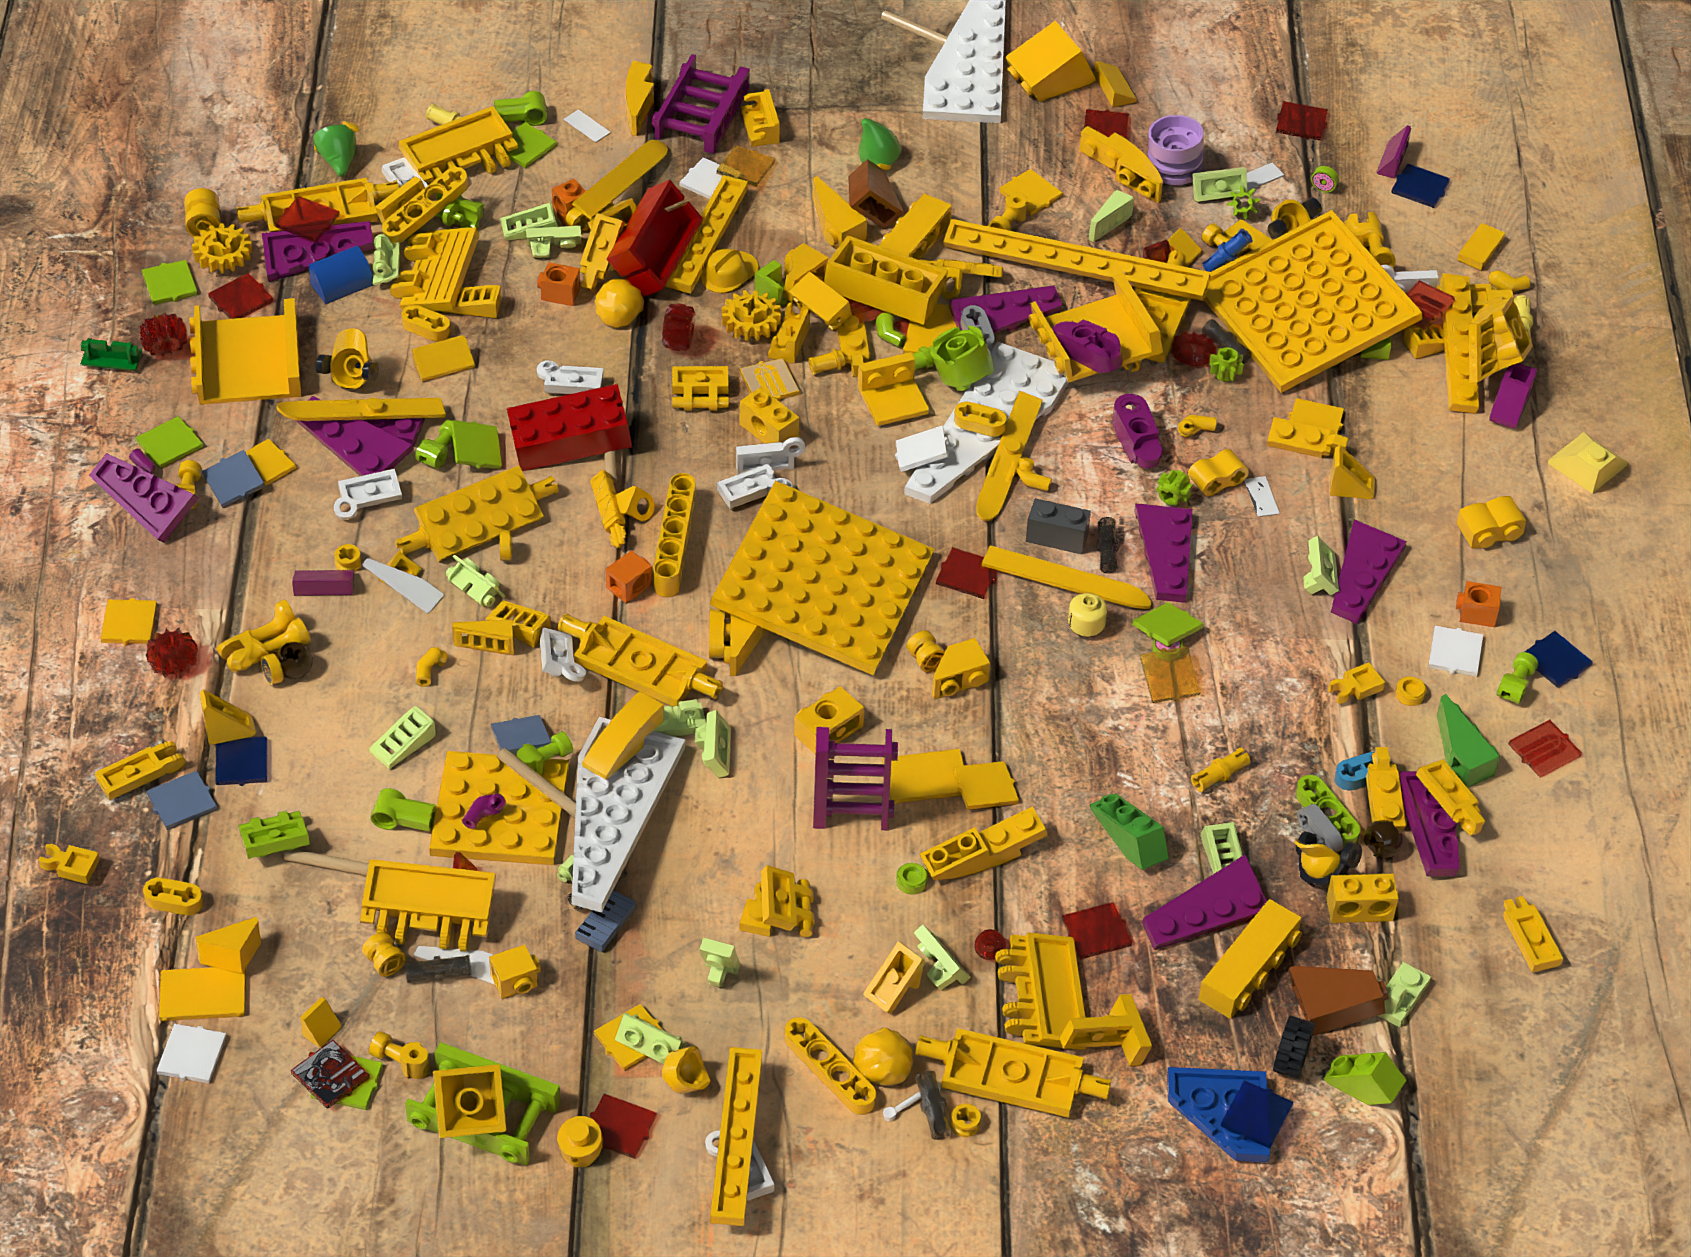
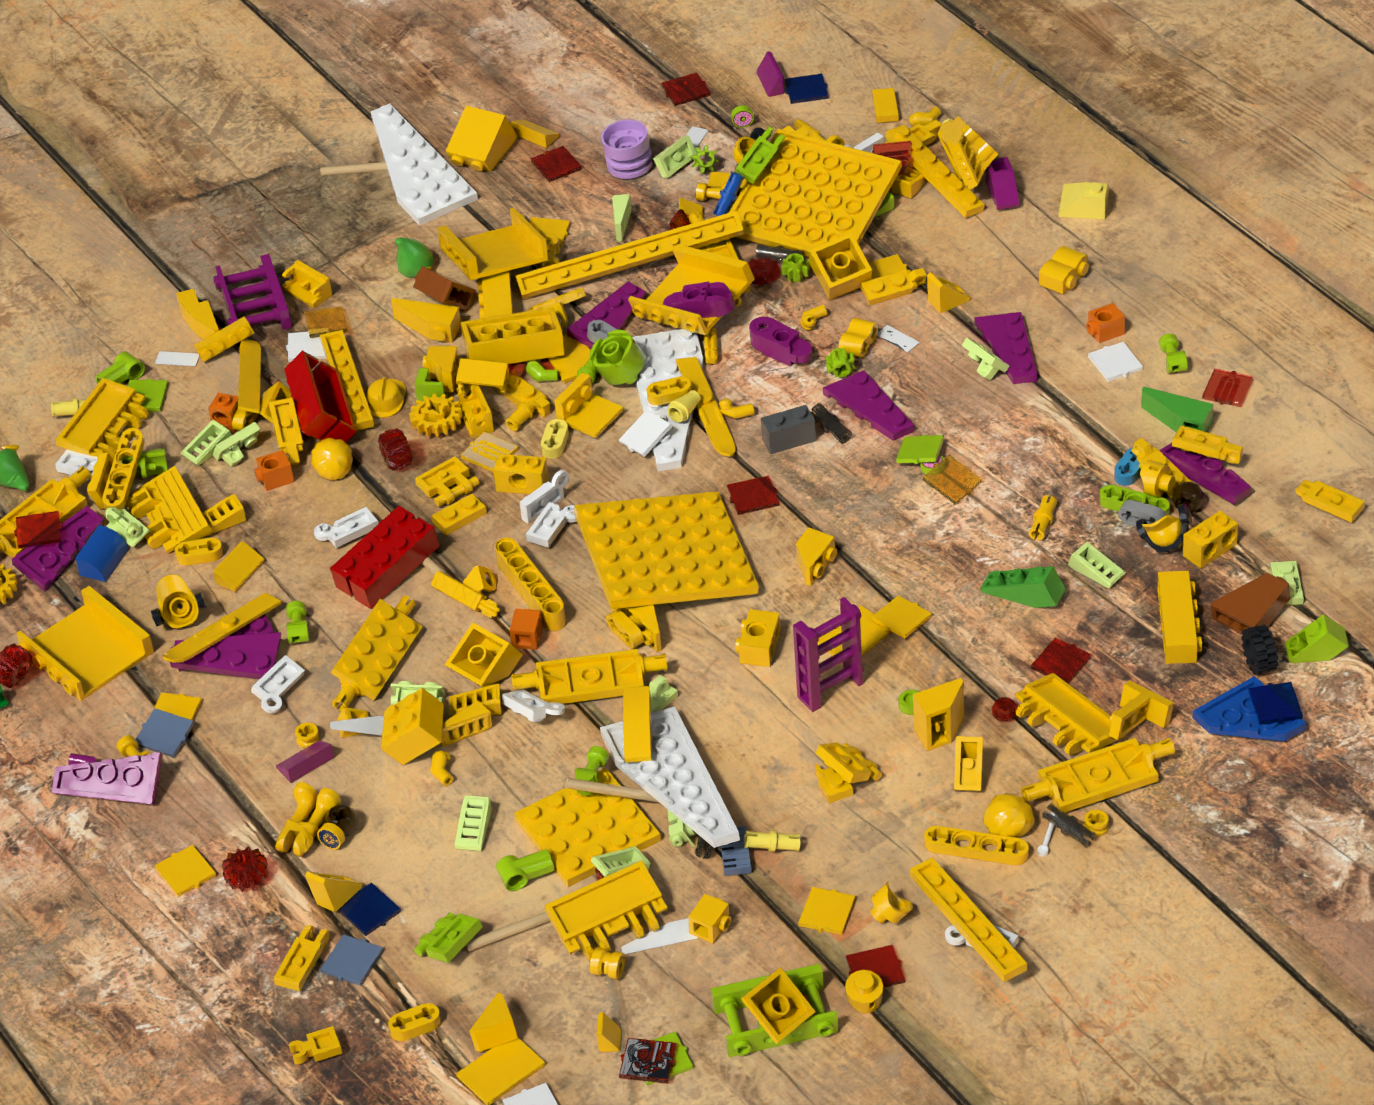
camera: 30 degrees left, 5 degrees down
(169, 442) = (86, 737): lime piece -> none
(240, 297) = (35, 612): clear red piece -> none
(411, 1056) = (696, 1014): yellow leg -> none
(430, 607) = (412, 726): none -> yellow brick
(438, 968) = (641, 959): clear smoke pin -> none
(476, 444) = (325, 607): lime piece -> none
(483, 807) = (584, 828): magenta arm -> none
(494, 859) = (617, 860): none -> yellowish green slope
(506, 546) = (417, 659): yellow tile -> none
(520, 731) = (554, 772): sand blue piece -> none
(562, 580) = (483, 657): none -> yellow slope
(635, 129) = (224, 339): none -> yellow piece
(643, 932) = (772, 840): none -> light yellow pin
(647, 1038) = (845, 902): yellowish green hinge -> none
(682, 426) = (459, 514): none -> yellow plate
(715, 740) = (690, 692): yellowish green hinge -> none
(721, 959) = (844, 822): yellowish green hinge -> none
(835, 401) = (558, 439): none -> light yellow beam
(915, 902) = (938, 713): none -> yellow slope
(925, 650) = (779, 557): yellow wheel -> none
(946, 968) = (993, 738): yellowish green hinge -> none
(955, 181) = (496, 249): none -> yellow panel
(979, 442) = (682, 407): none -> light yellow cone
(985, 849) = (944, 652): yellow slope -> none
(1065, 577) = (822, 460): yellow piece -> none
(1071, 397) = (710, 346): none -> yellow axle
(1087, 614) = (864, 472): light yellow head -> none
(1128, 161) = (602, 176): yellow slope -> none
(1213, 904) = (1119, 602): magenta wing -> none
(1263, 387) = (840, 266): none -> yellow brick
(1285, 227) = (759, 156): none -> lime hinge
(1359, 681) = (1077, 413): yellow plate -> none
(1361, 805) = (1157, 481): none -> yellow piece
(1410, 691) = (1112, 401): yellow tile -> none
(1558, 659) = (1187, 329): clear blue piece -> none

